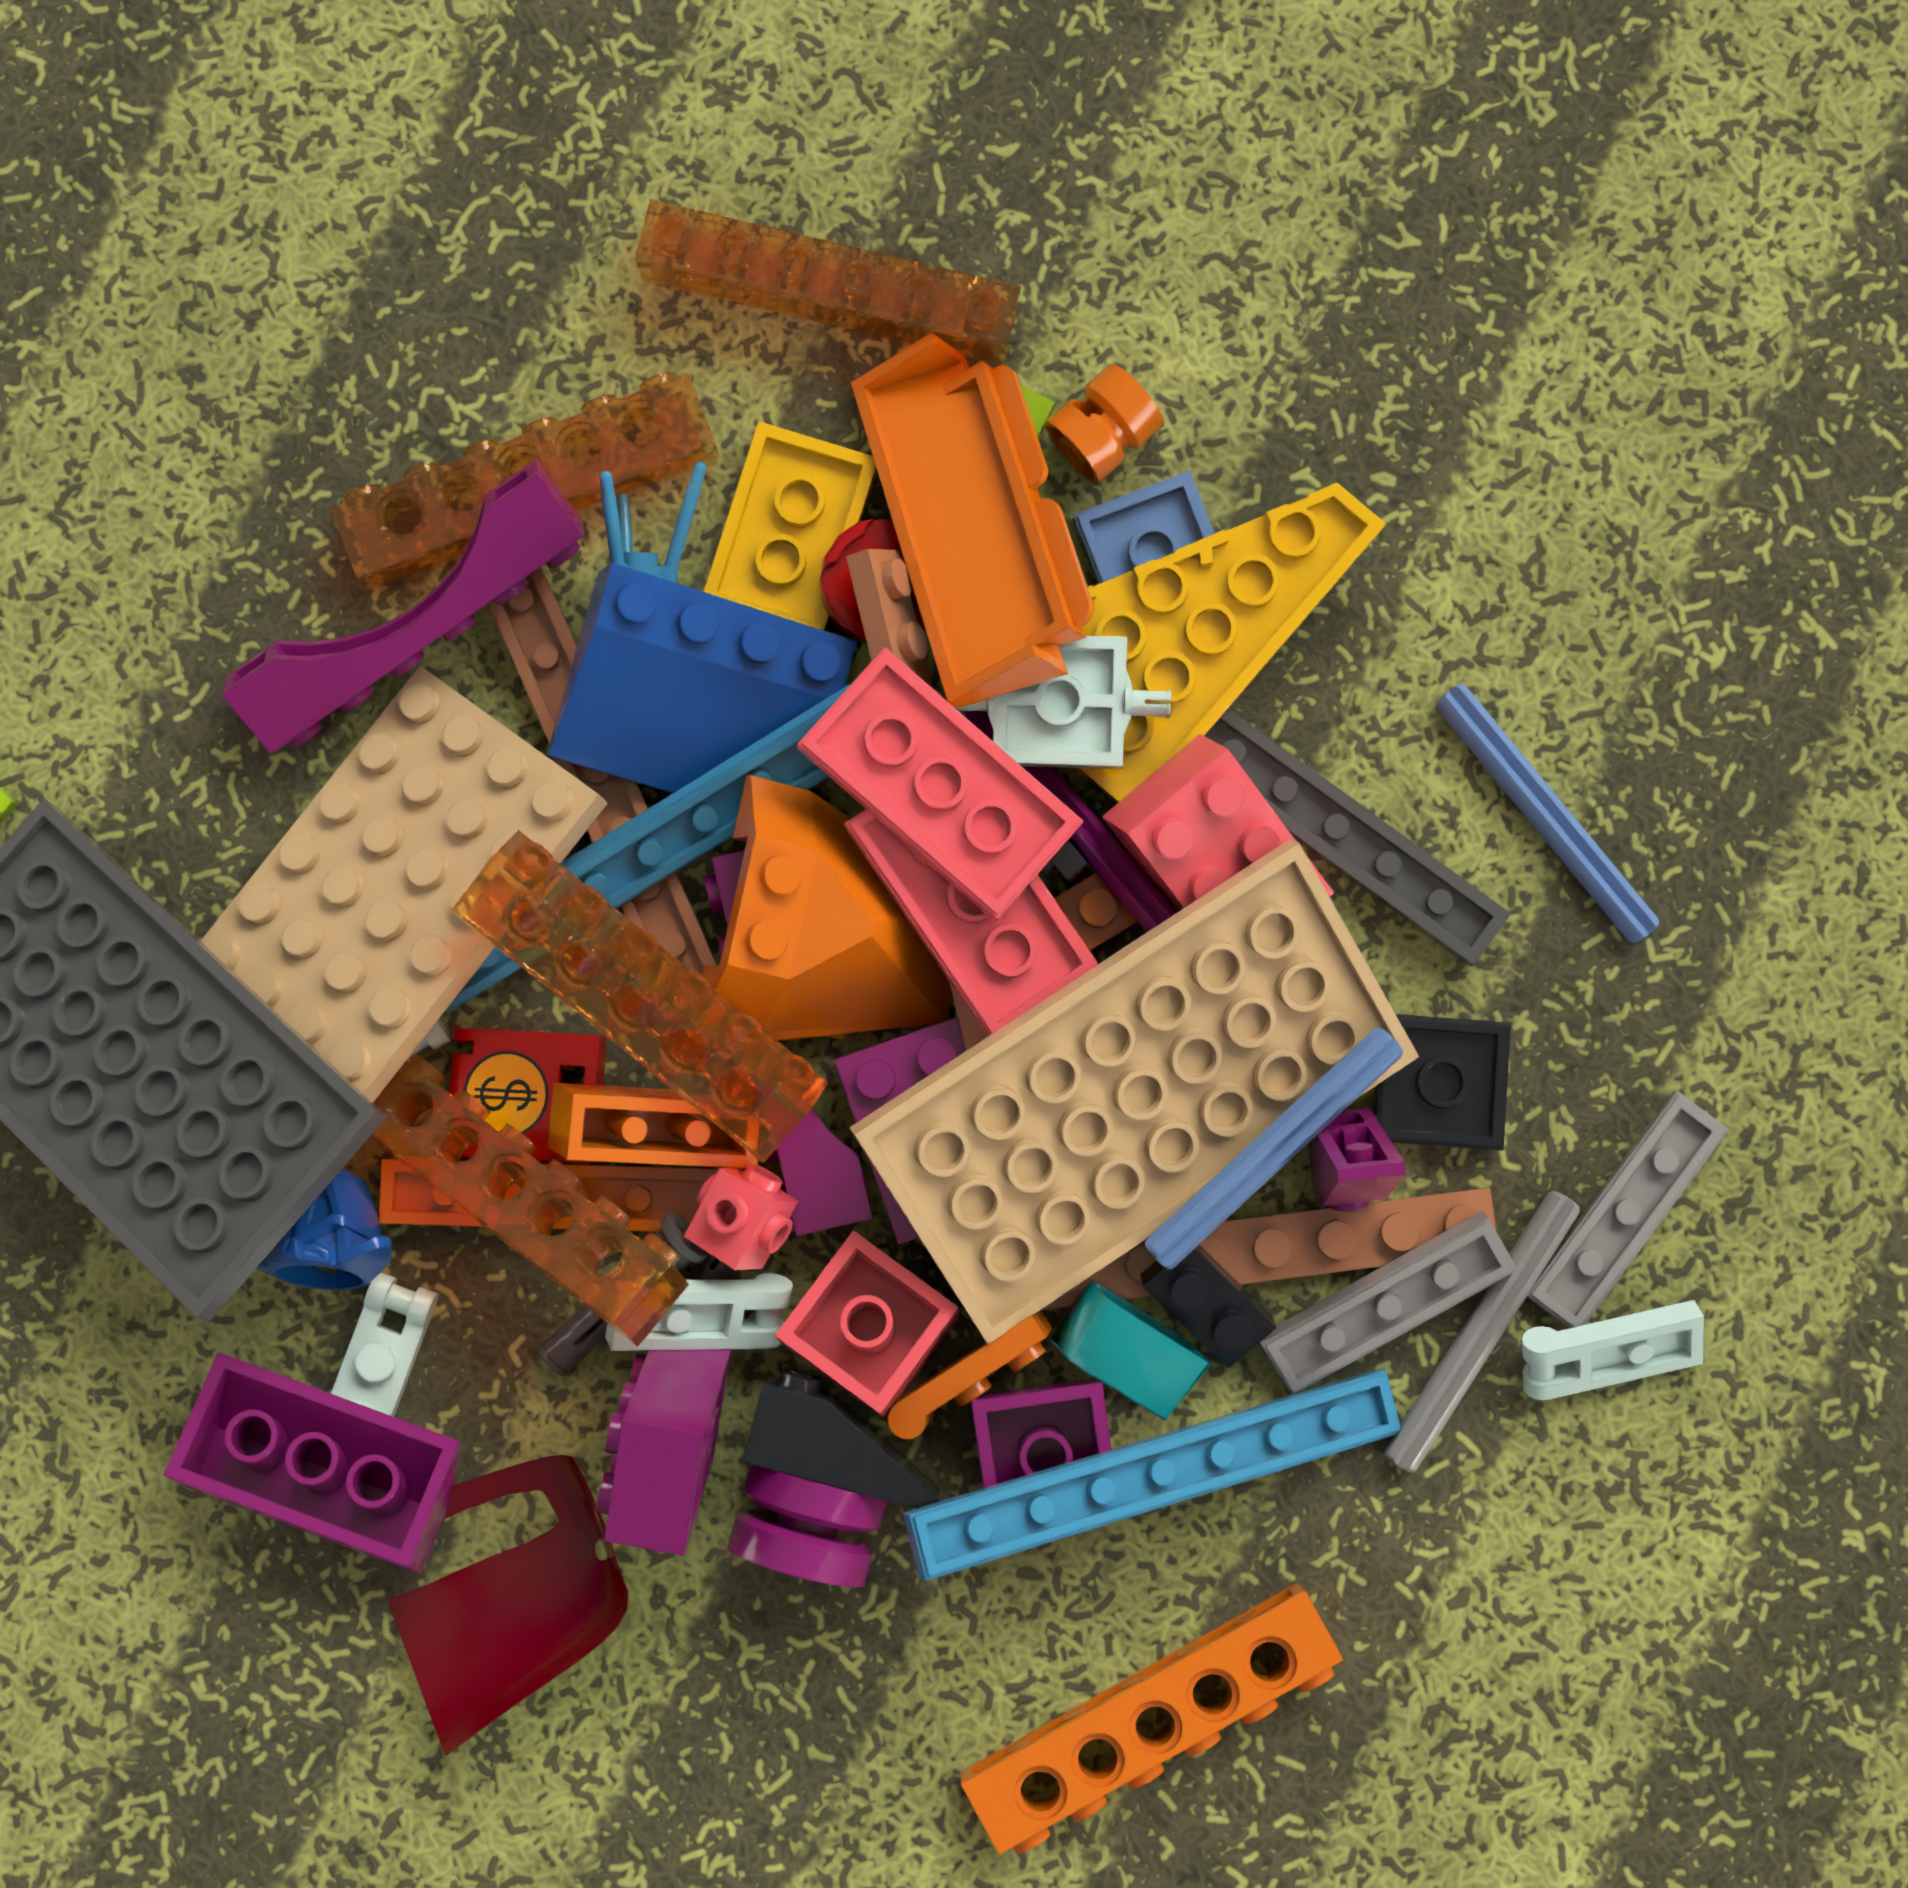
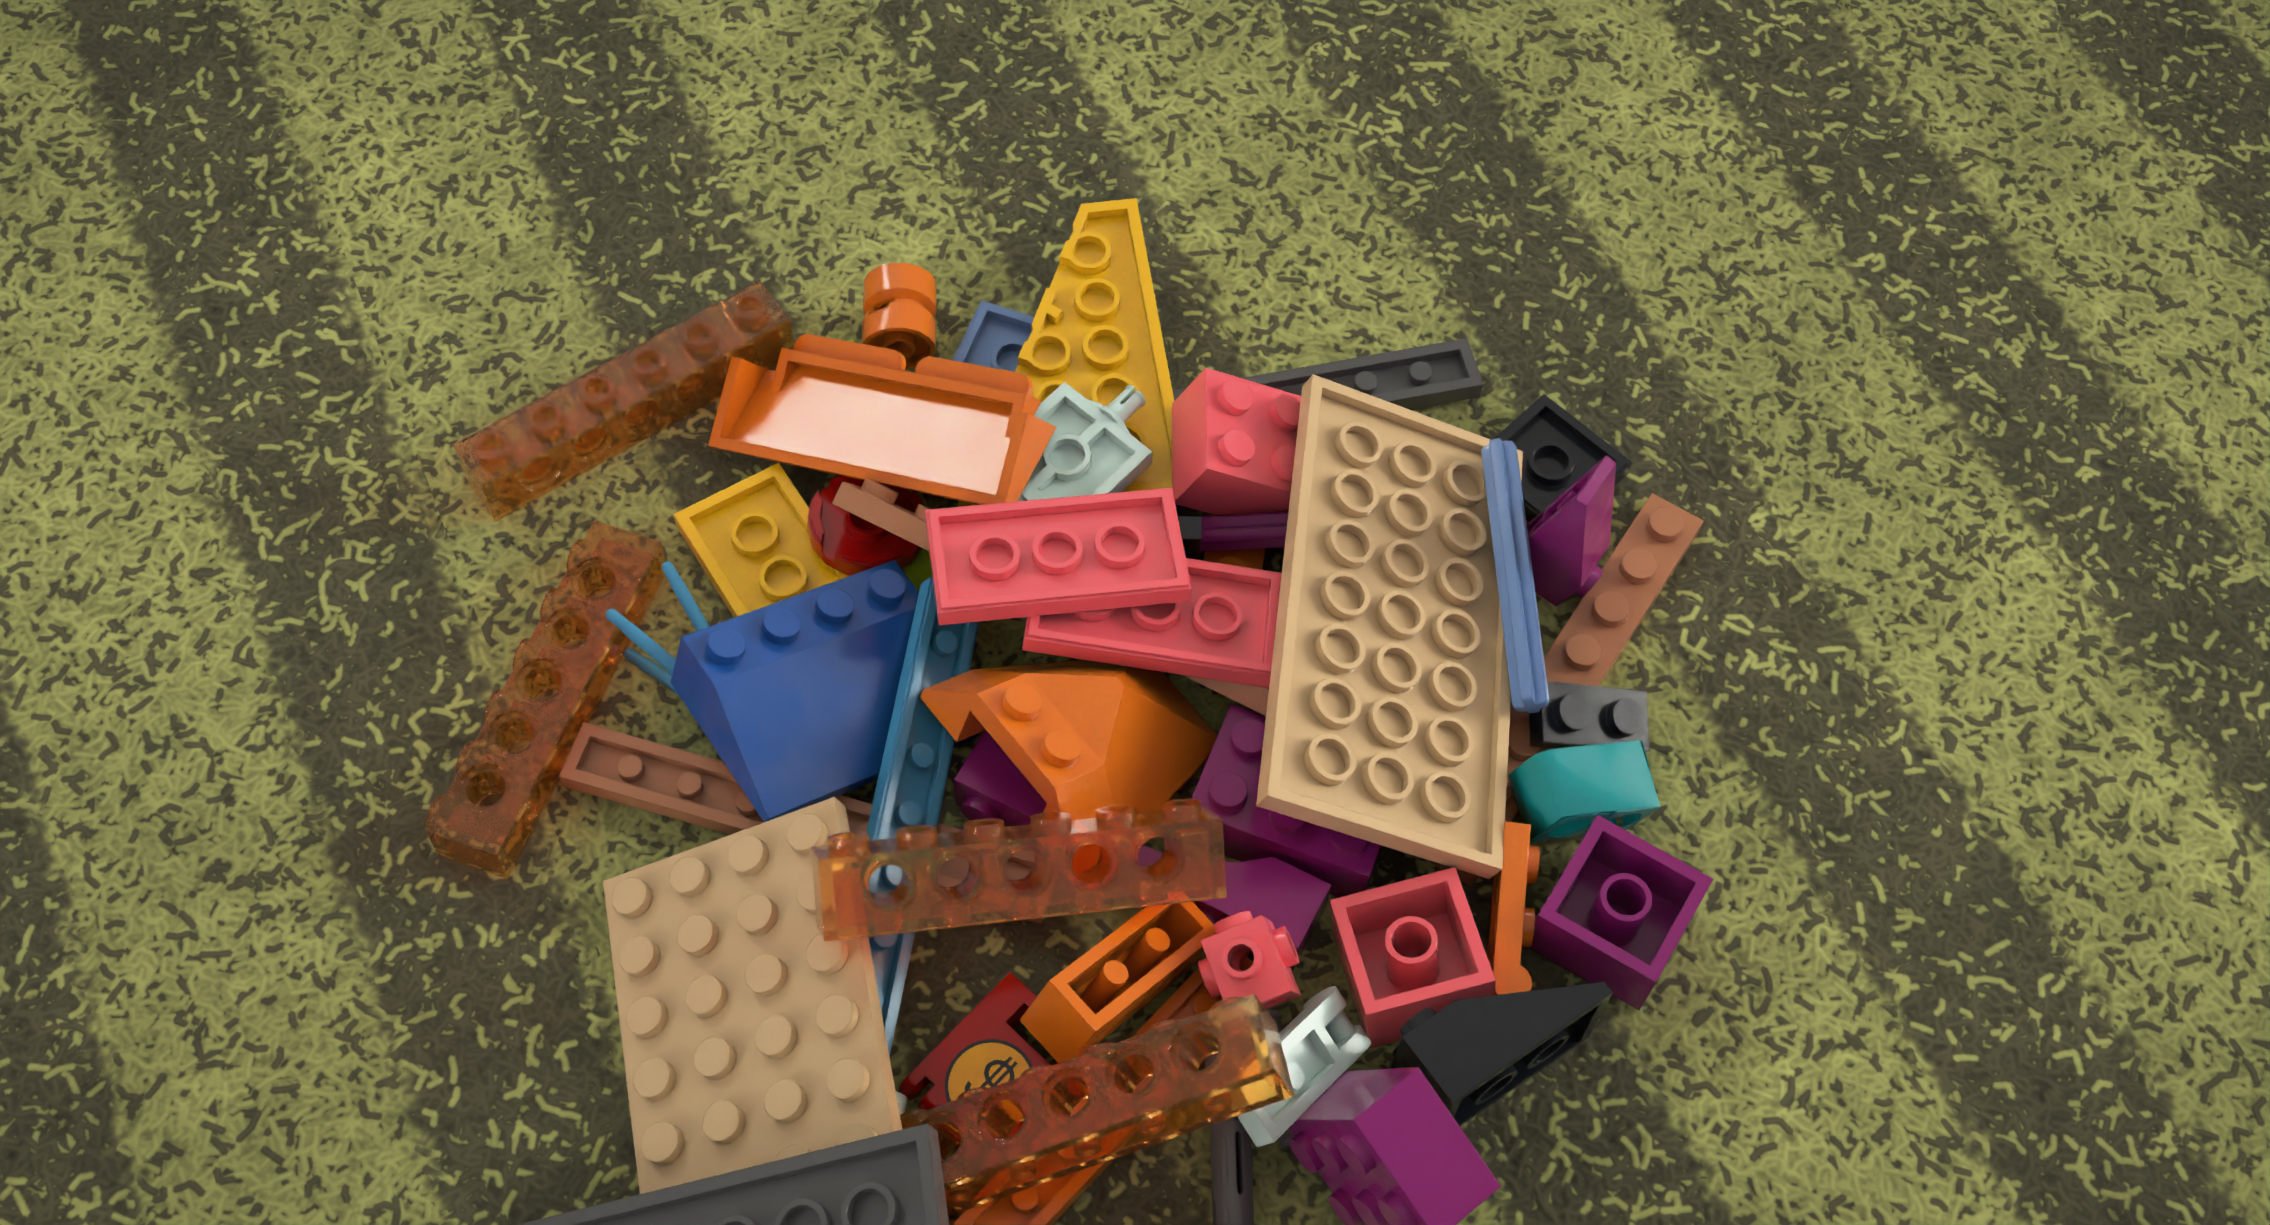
camera: 50 degrees left, 25 degrees down
(300, 682) = (583, 710): magenta arch -> none
(806, 1528) = (1537, 1117): magenta wheel -> none
(1112, 1715) = (1863, 1160): orange brick -> none
(1149, 1474) = (1693, 846): dark azure tile -> none
(1388, 1302) = (1686, 612): light grey tile -> none
(1481, 1333) = (1756, 579): light grey axle -> none
(1547, 813) = (1414, 278): medium blue axle -> none
(1612, 1350) = (1834, 504): light aqua plate -> none
(1626, 1211) = (1738, 435): light grey tile -> none

